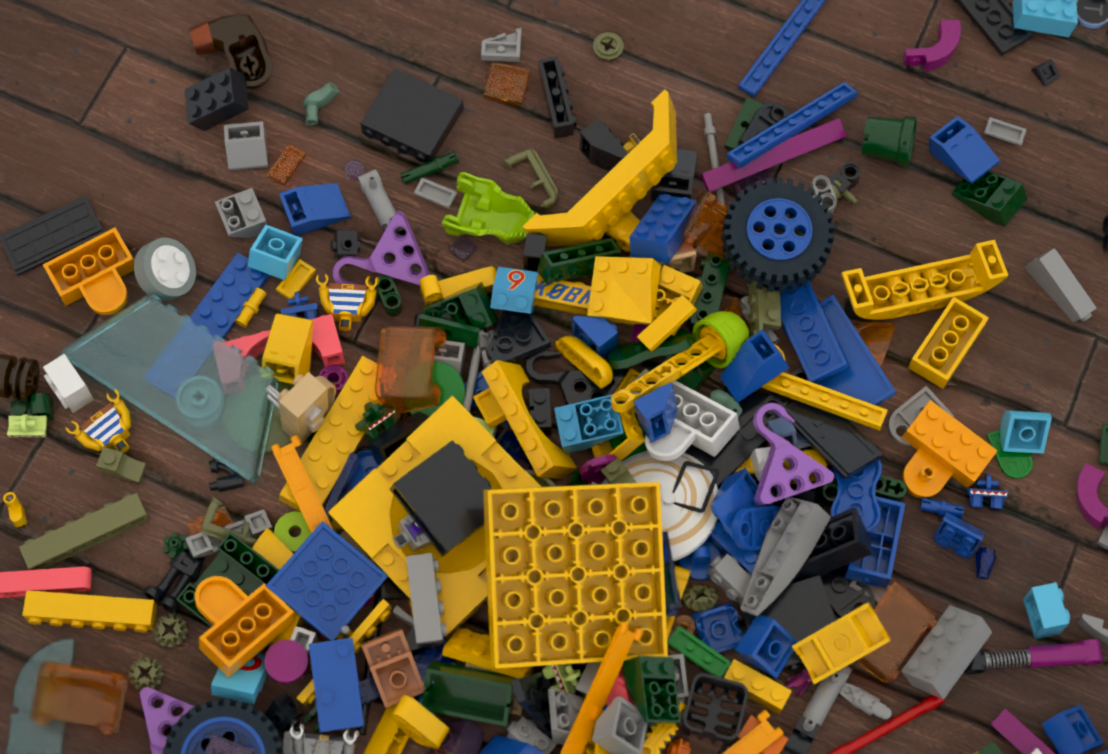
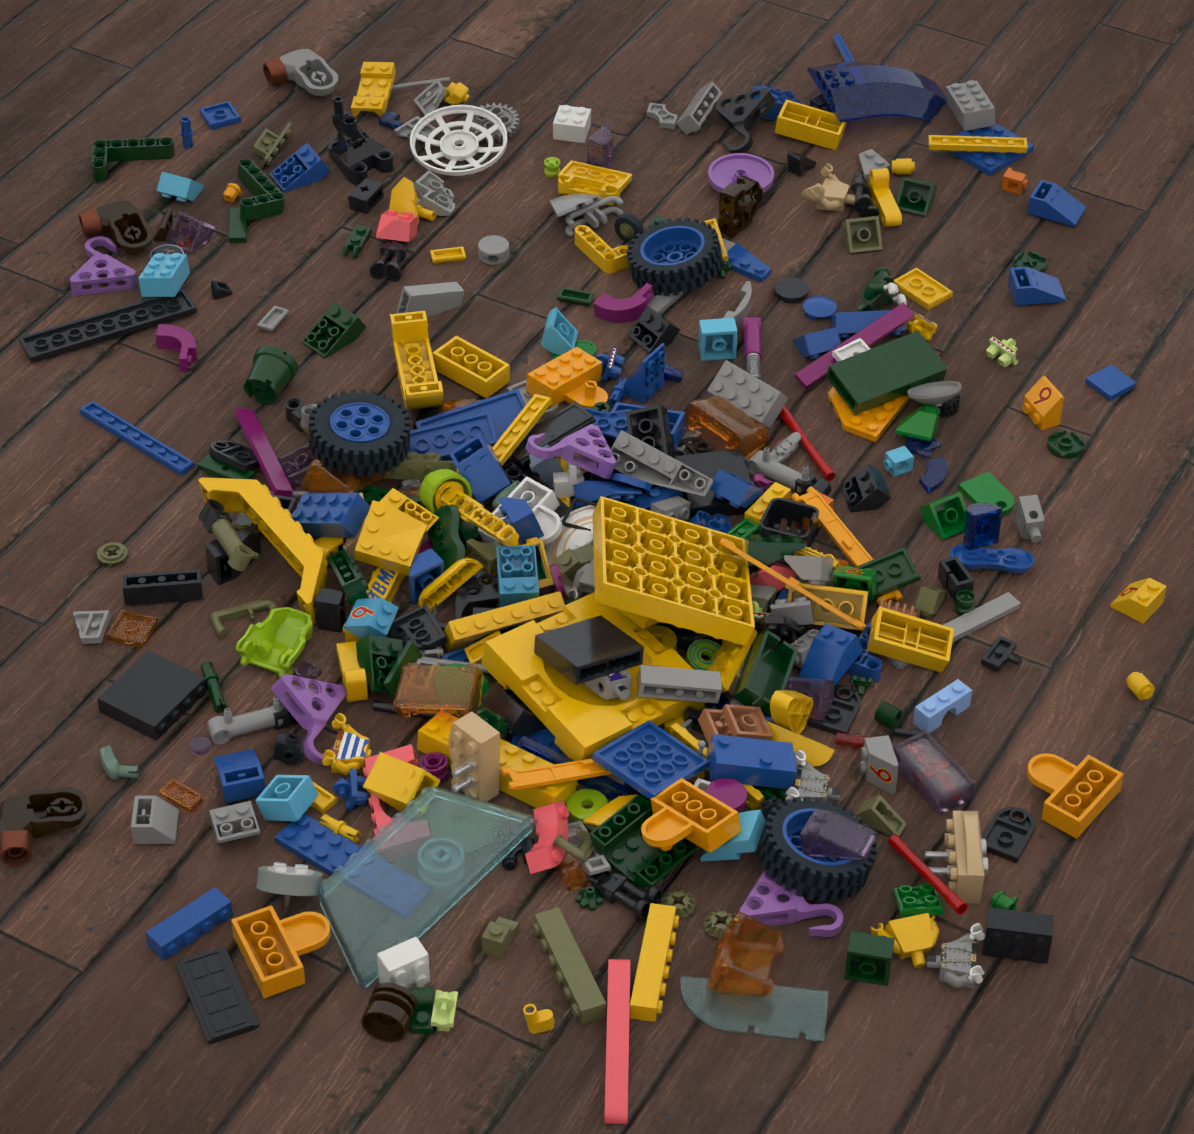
camera: 85 degrees left, 25 degrees down
(106, 428) = (454, 941): torso -> none
(127, 198) = (189, 923): none -> blue brick
(216, 99) = (96, 833): black brick -> none
(236, 501) = (550, 823): none -> coral brick
(389, 295) = (355, 717): dark green beam -> none
(435, 193) = (242, 686): light grey tile -> none
(619, 124) = (223, 528): none -> olive piece
(666, 323) = (430, 513): yellow tile -> none
(791, 125) = (237, 435): blue tile -> none
(841, 642) = (743, 438): yellow piece -> none
(962, 150) = (291, 334): blue slope -> none
(1058, 538) = (653, 330): none -> black slope

